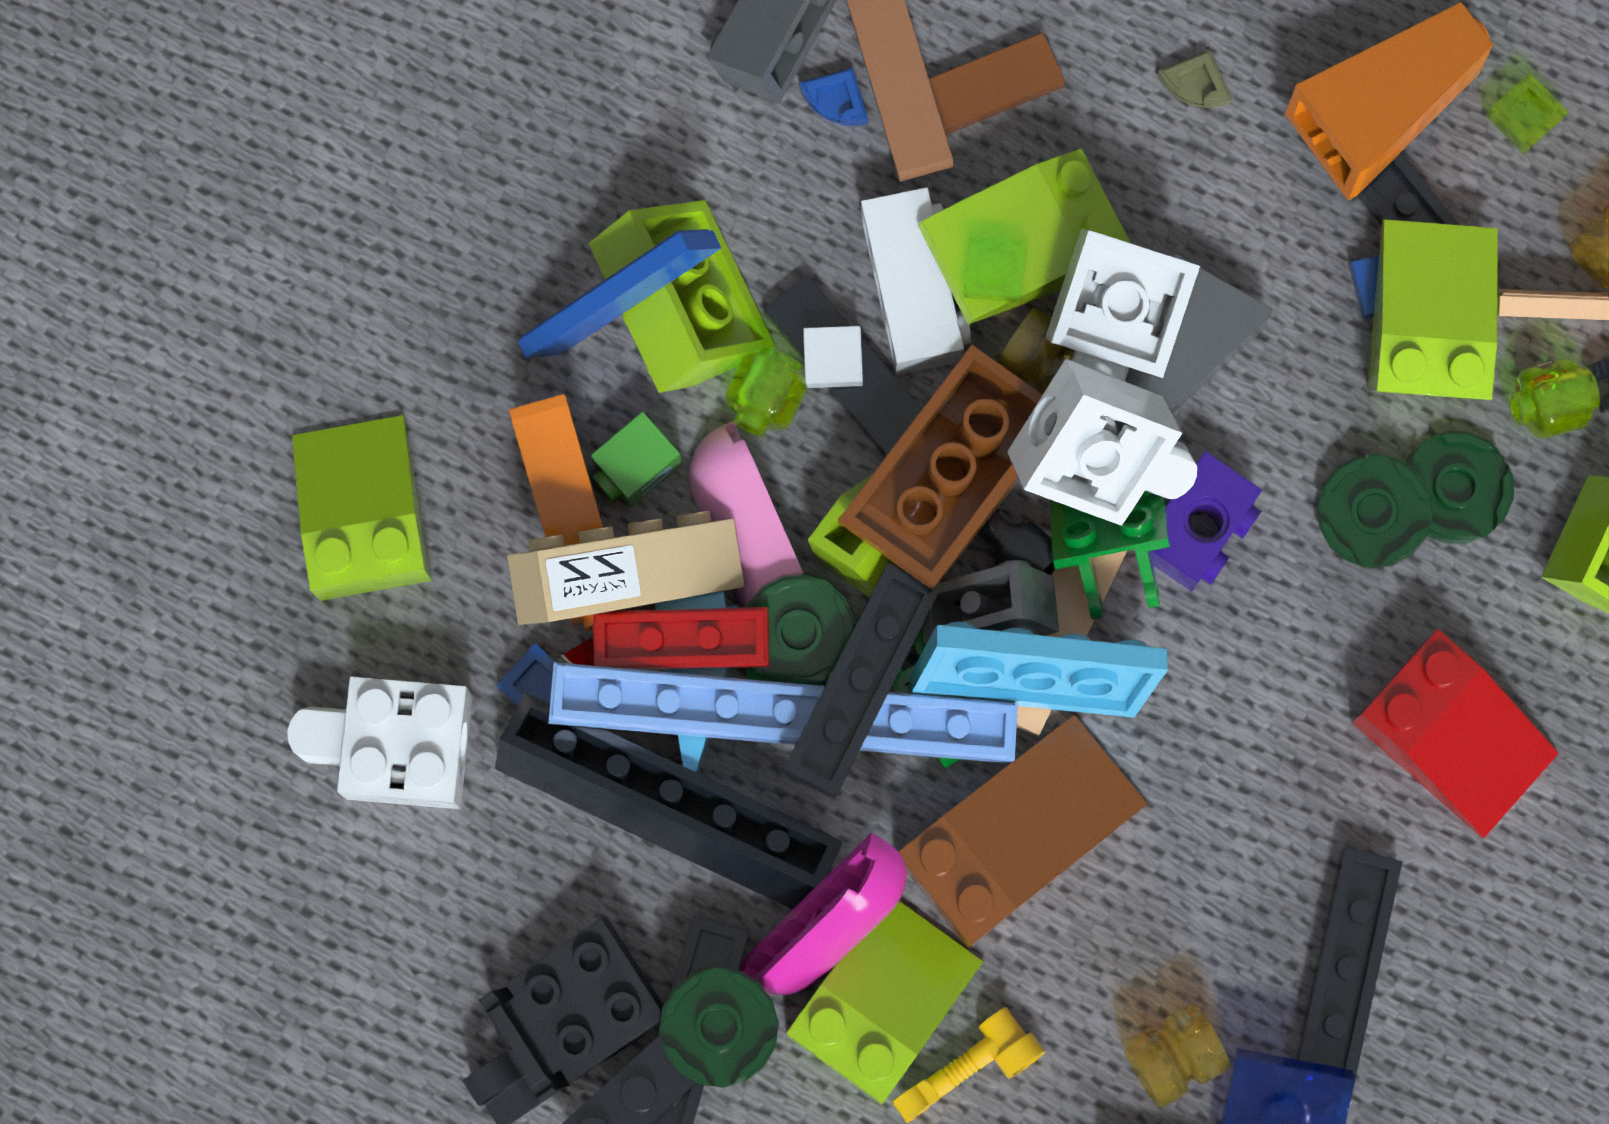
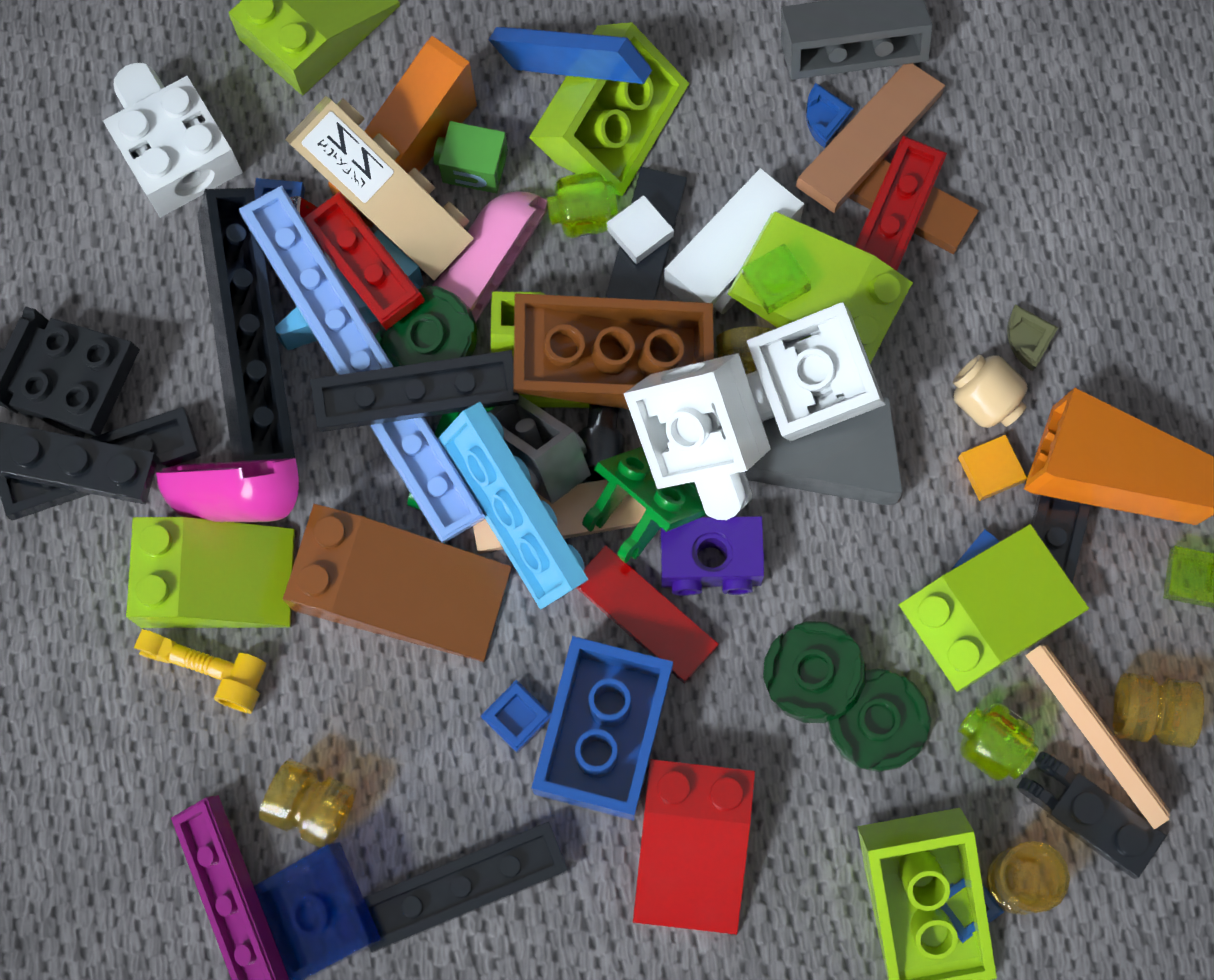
camera: 55 degrees right, 5 degrees down
(719, 1027) = (104, 468): dark green tile -> none
(986, 100) = (900, 201): none -> red tile
(1215, 621) = (646, 614): none -> red tile
(1222, 809) = (516, 716): none -> blue tile
(1228, 157) = (990, 391): none -> tan head
(1297, 210) = (992, 467): none -> light orange tile
(1298, 737) = (602, 728): none -> blue brick

